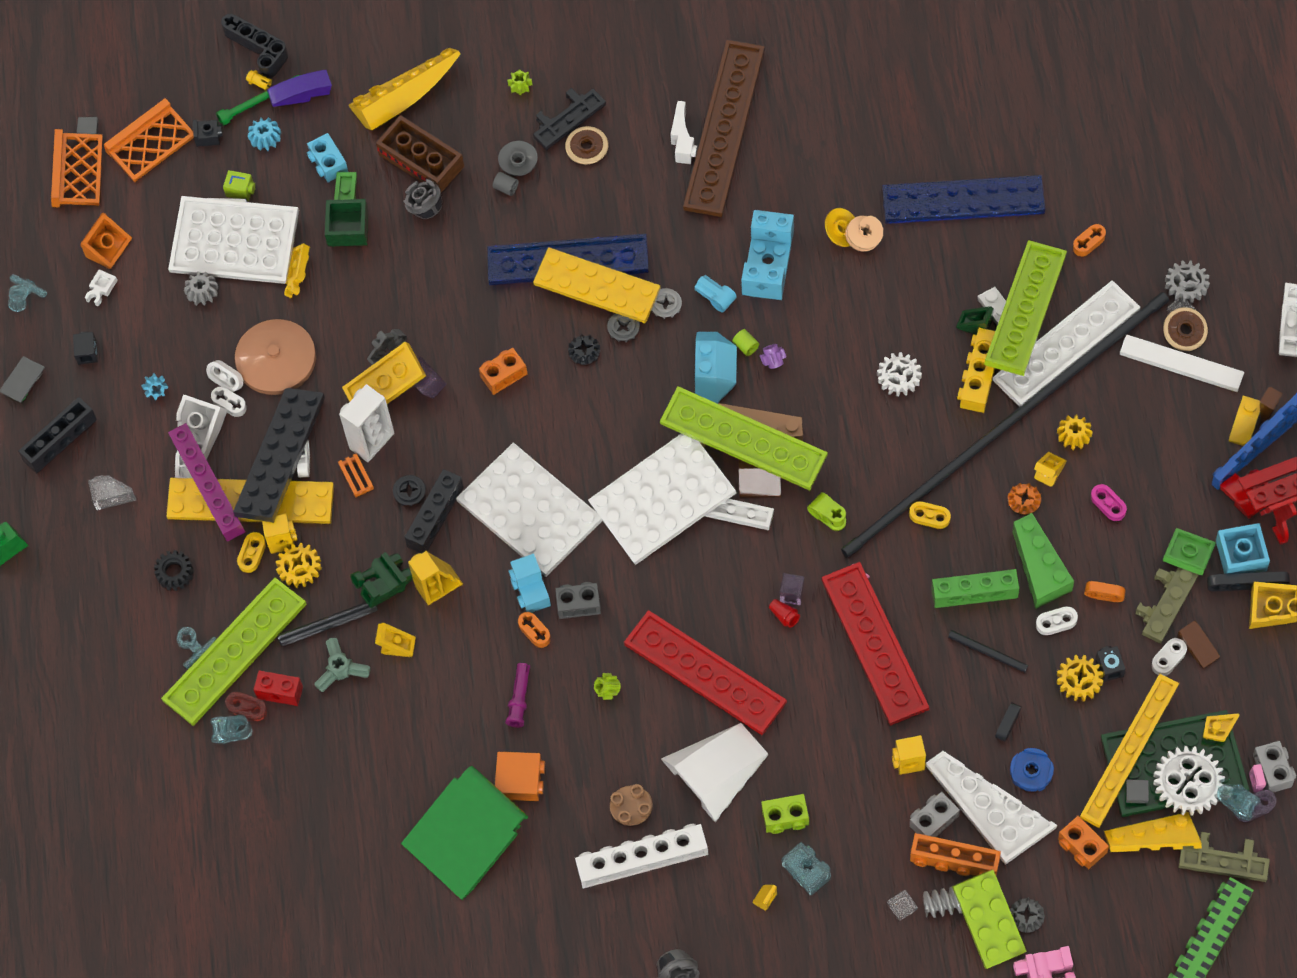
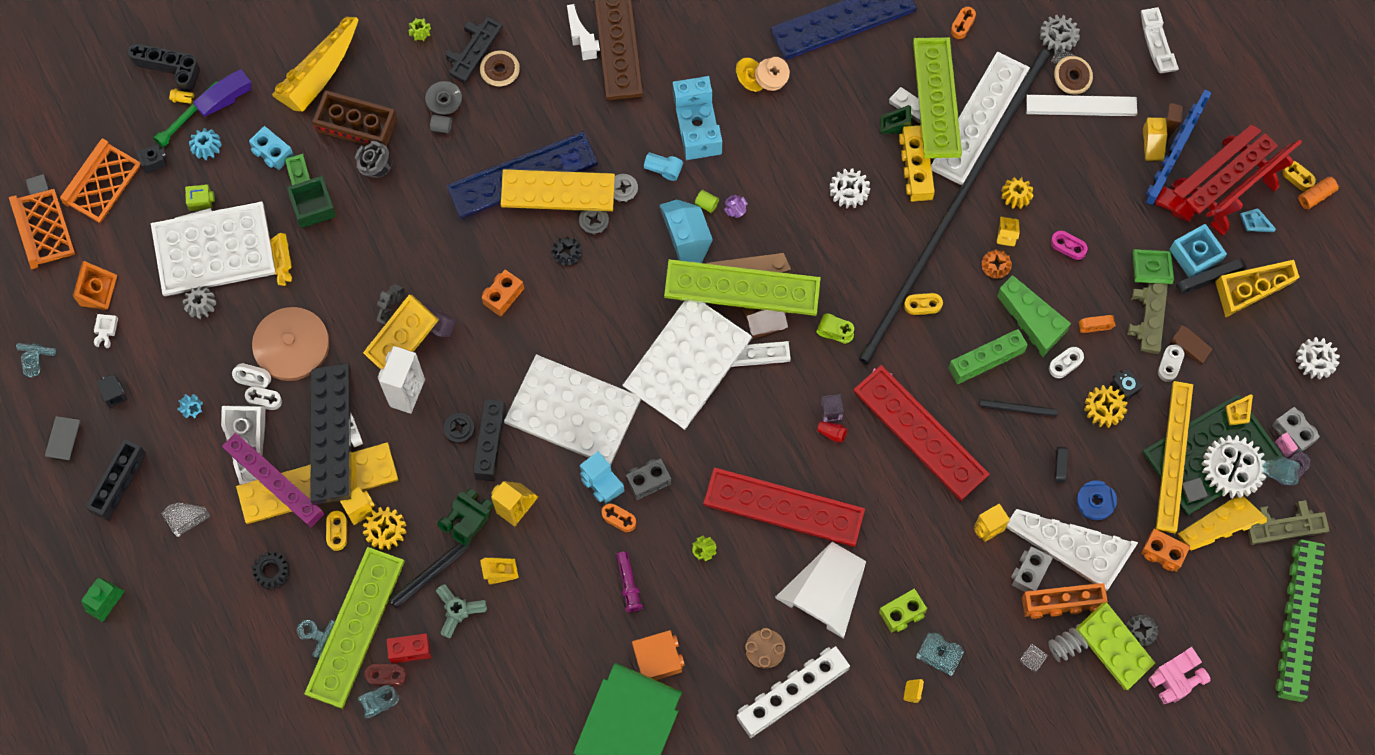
camera: 25 degrees left, 5 degrees up
(349, 461) = (394, 418): orange tile -> none

